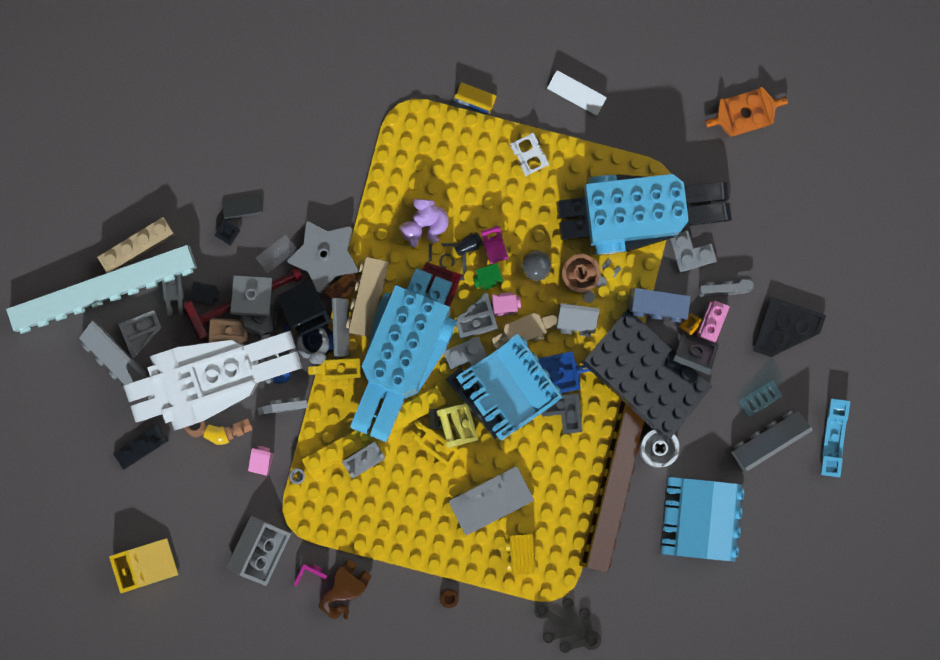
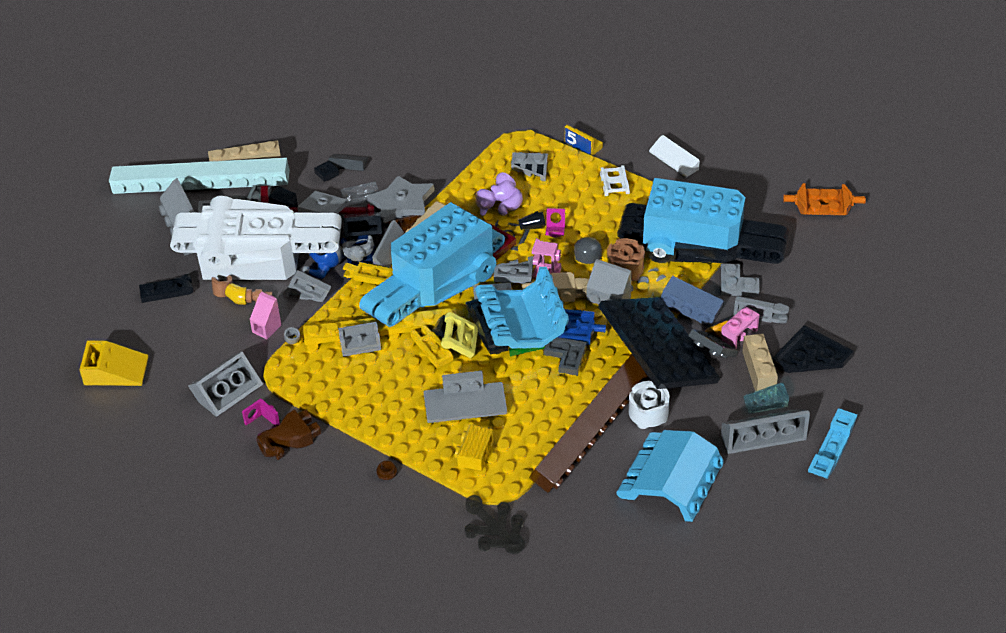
camera: 25 degrees right, 40 degrees down
(435, 156) = (530, 164): none -> light grey wing
(488, 277) = (537, 227): green window -> none
(744, 361) = (759, 362): none -> tan brick

